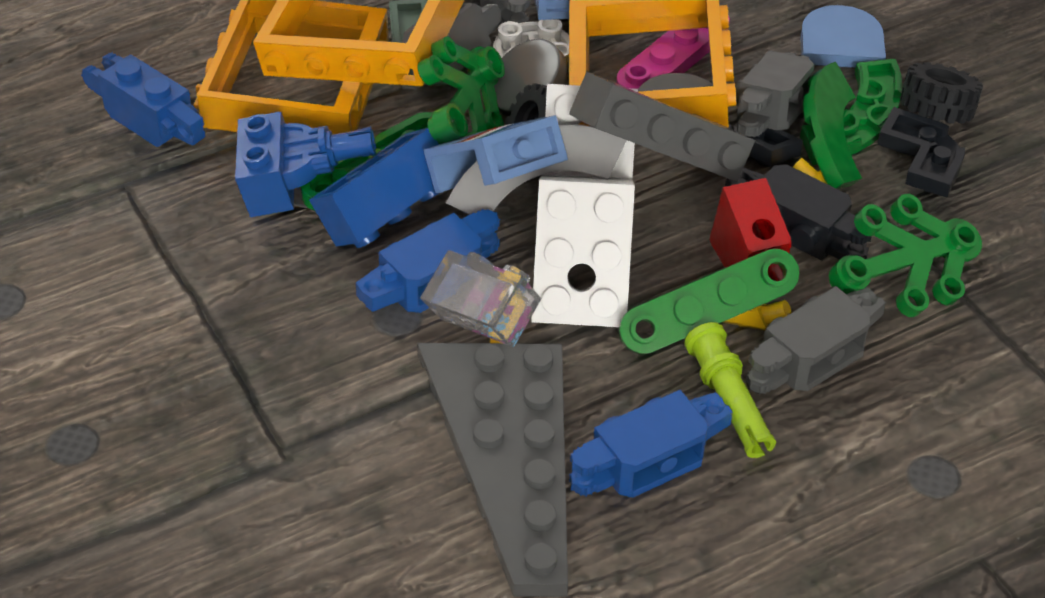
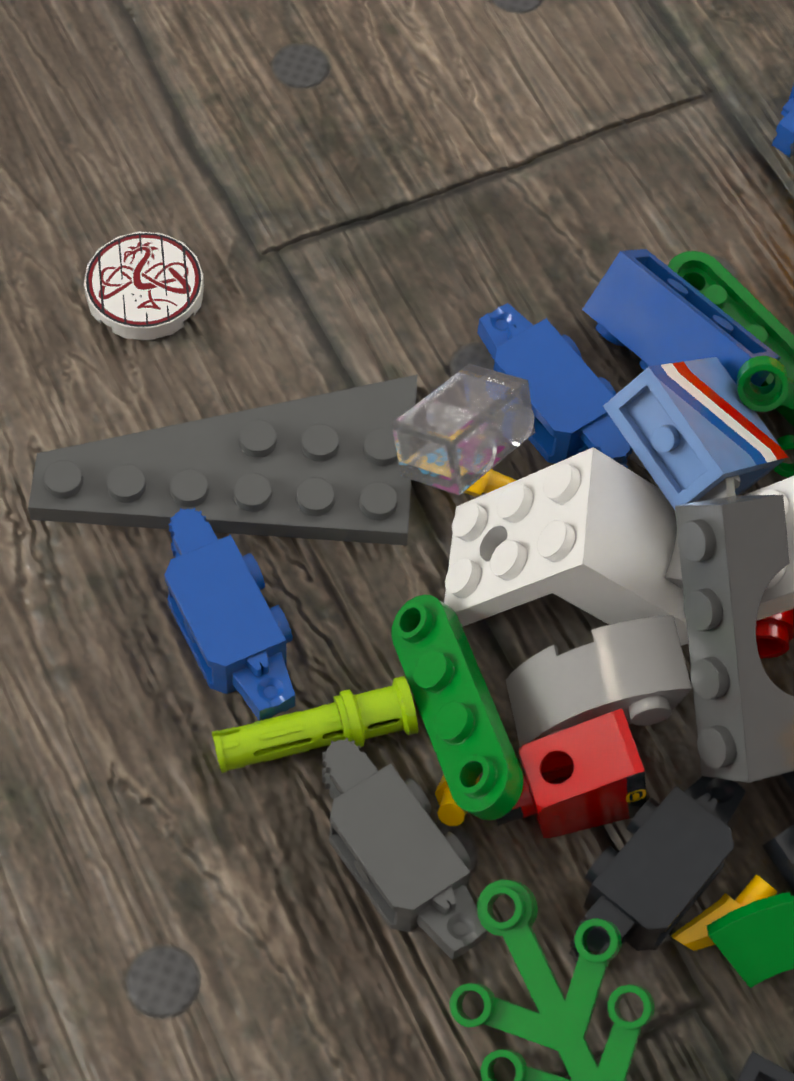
camera: 90 degrees right, 15 degrees up
(282, 157) = (729, 220): blue brick -> none
(328, 531) = (144, 285): none -> white tile
(683, 223) = (626, 667): none -> light grey brick

